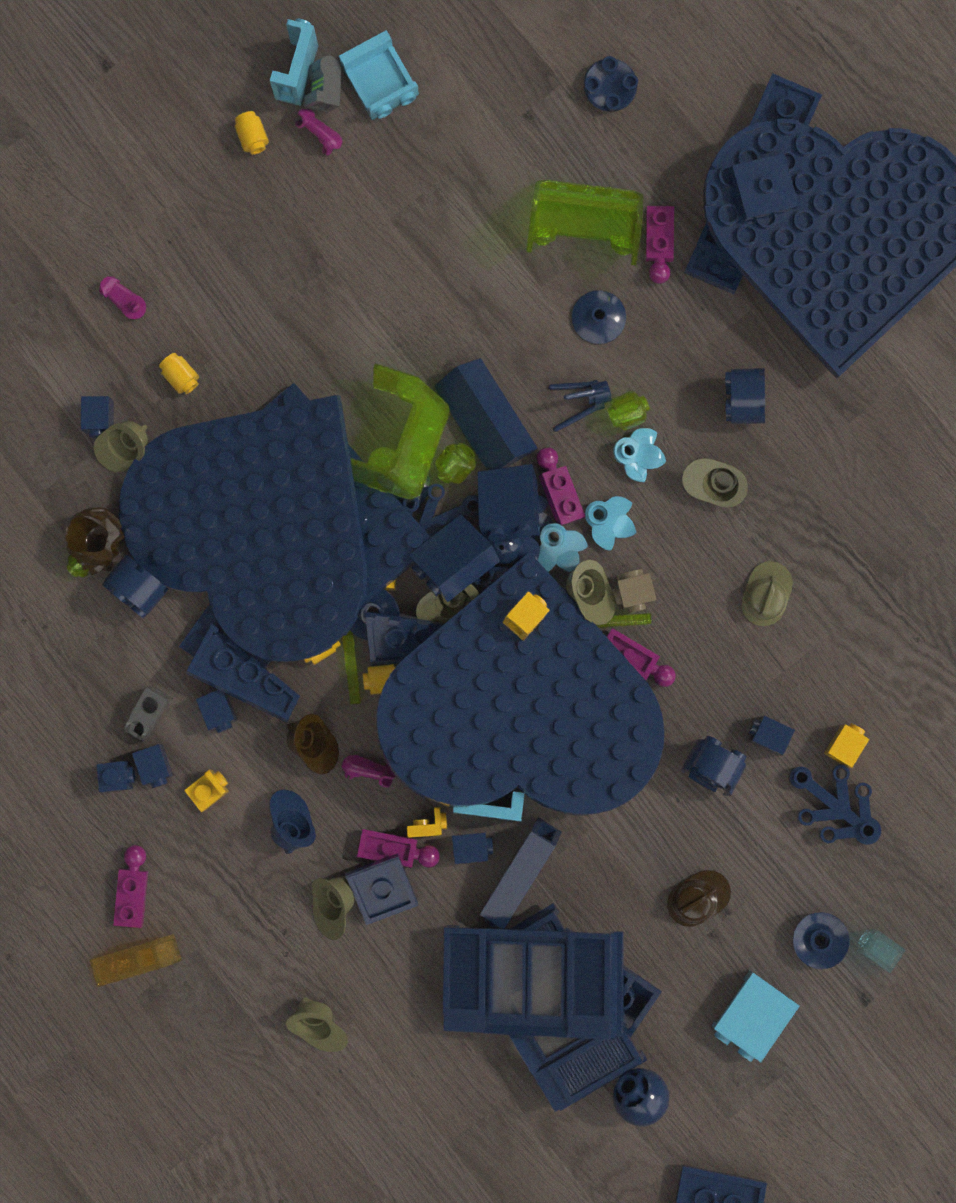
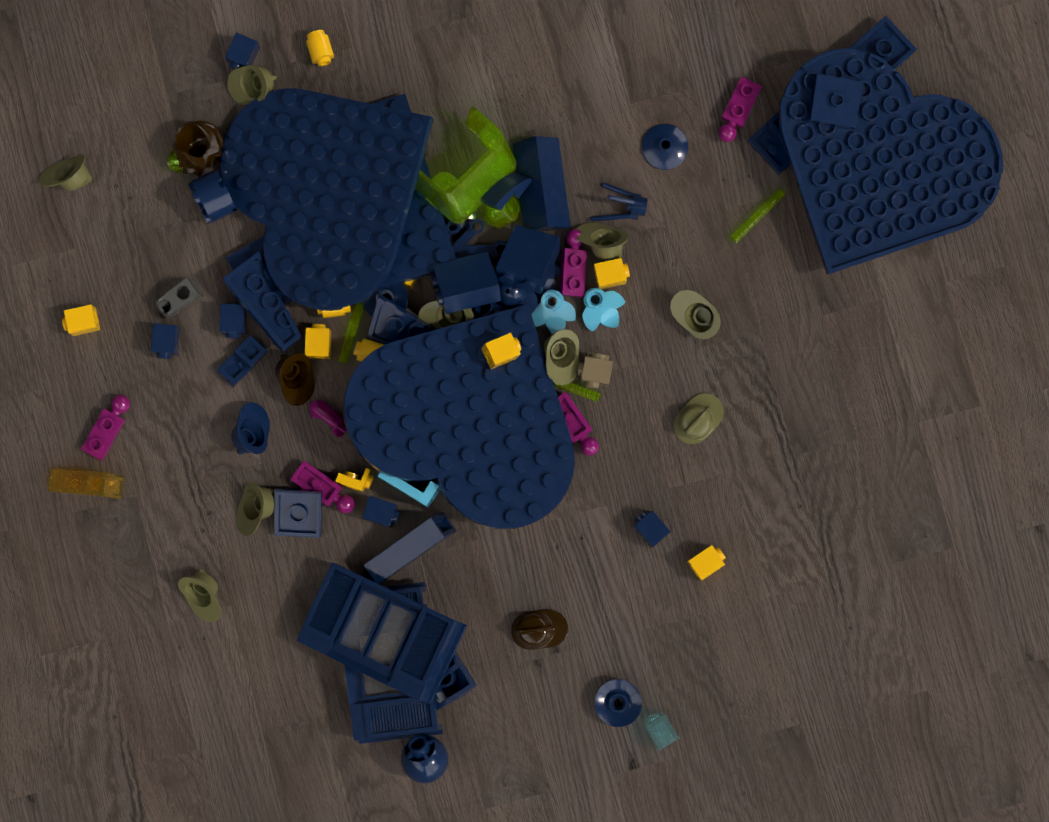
camera: 20 degrees right, 0 degrees up
(51, 784) = (81, 320): none -> yellow brick
(115, 776) = (132, 336): dark blue brick -> none
(207, 789) = (199, 377): yellow bracket -> none
(246, 751) = (241, 361): none -> dark blue slope
(320, 693) = (318, 342): none -> yellow brick
(448, 440) = (504, 189): none -> dark blue slope
(579, 446) = (603, 239): none -> olive piece
(586, 213) = (690, 61): clear neon green windscreen -> none
(603, 479) = (611, 273): none -> yellow brick
(628, 410) = (654, 229): clear neon green head -> none
(643, 453) = (651, 267): medium azure plate -> none
(714, 766) = (596, 532): dark blue brick -> none
(731, 347) = (757, 216): none -> clear neon green bar
(747, 396) = (750, 257): dark blue brick -> none
(755, 1018) = (540, 738): medium azure panel -> none
(838, 807) = (679, 608): dark blue plant -> none

